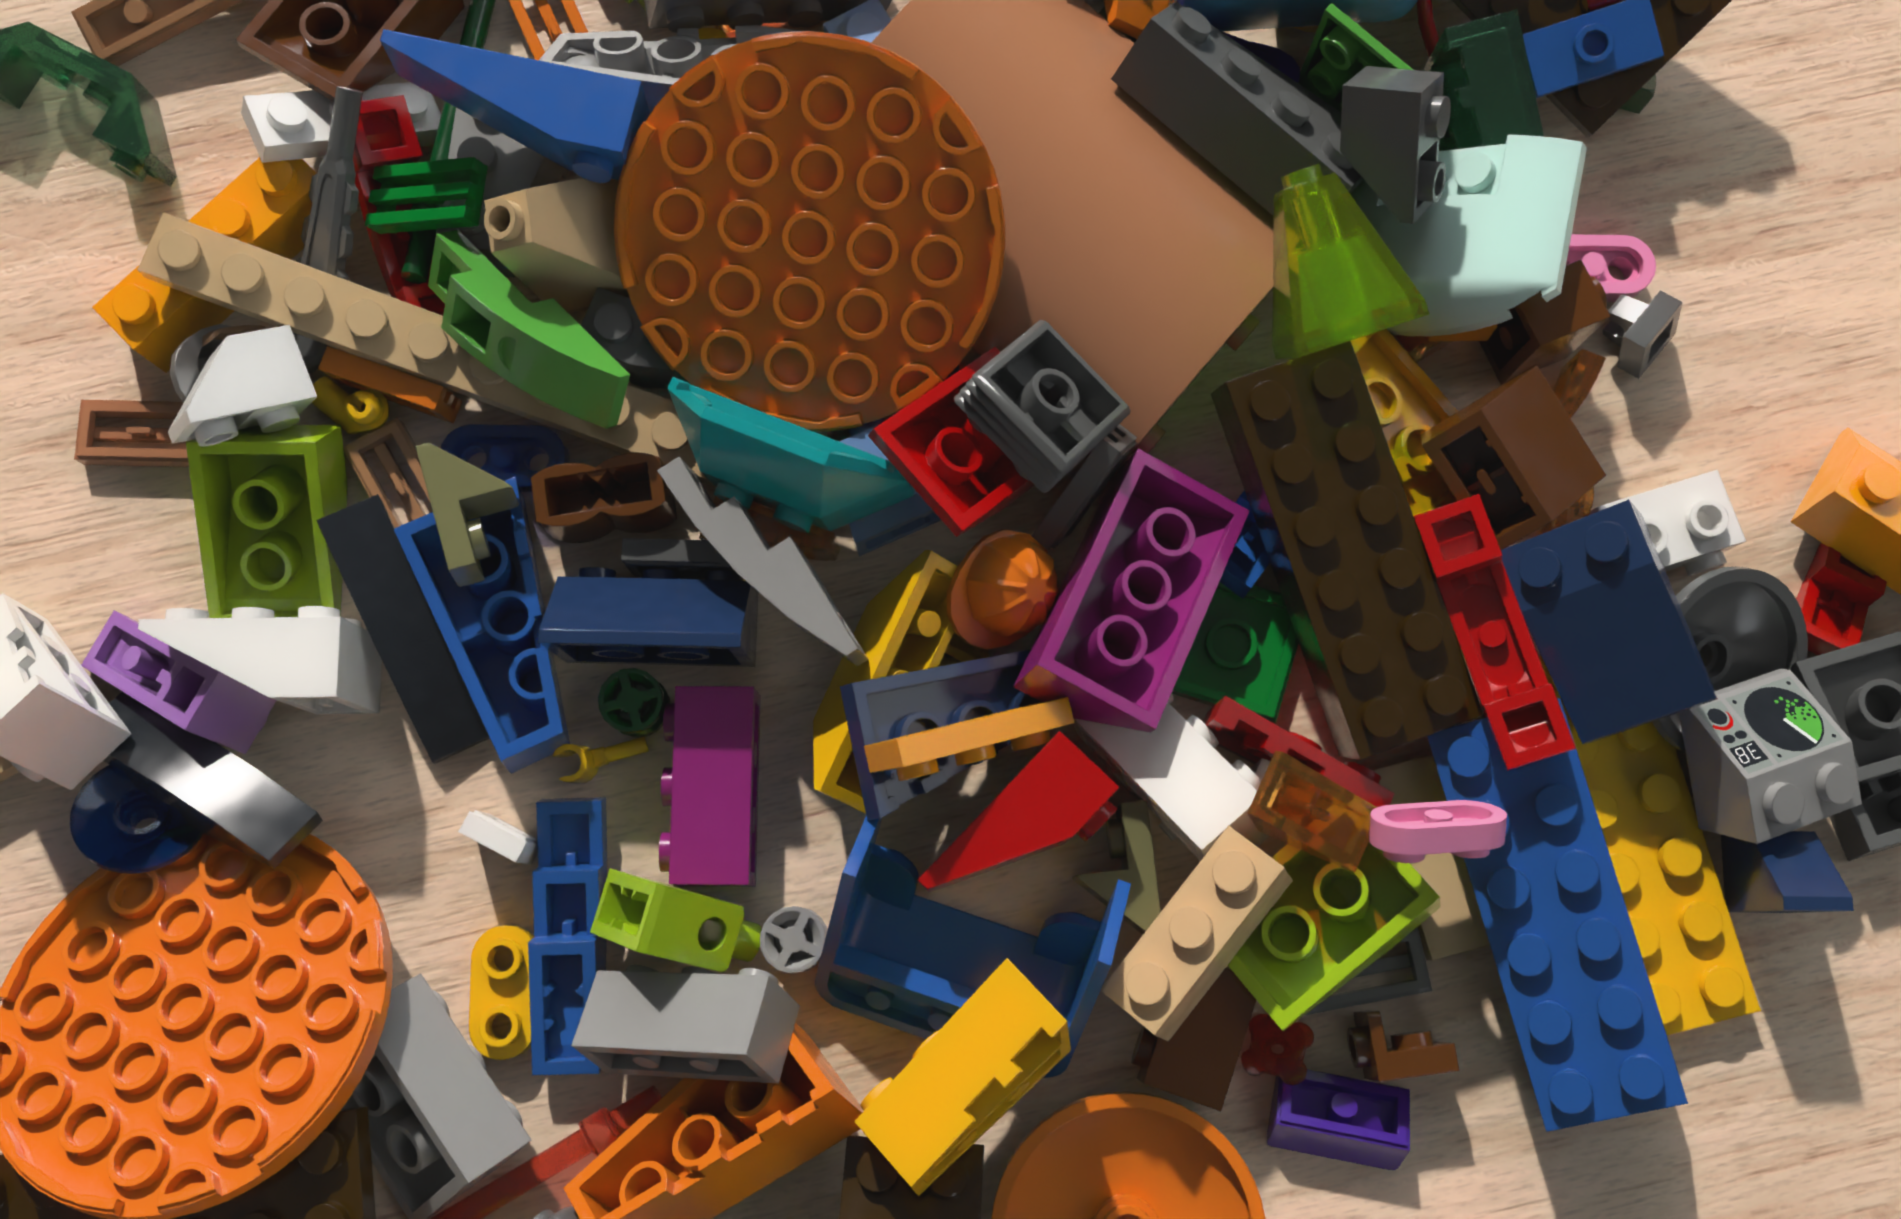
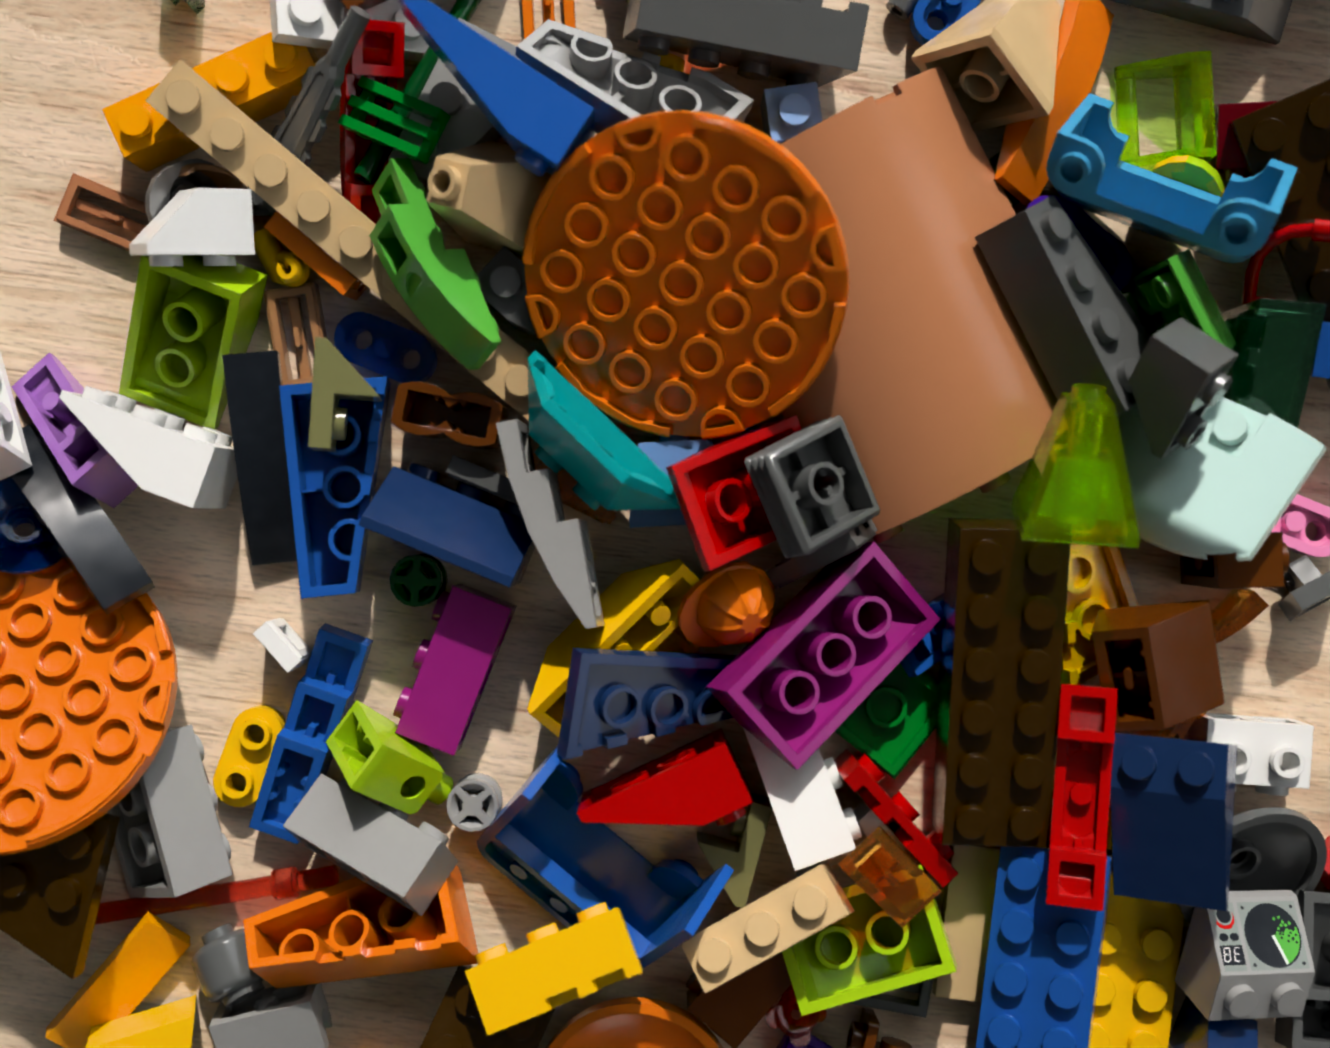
camera: 25 degrees right, 10 degrees up
(594, 758) = (373, 608): yellow hand -> none
(969, 740) = (655, 722): light orange plate -> none
(1452, 827) = (975, 923): bright pink plate -> none

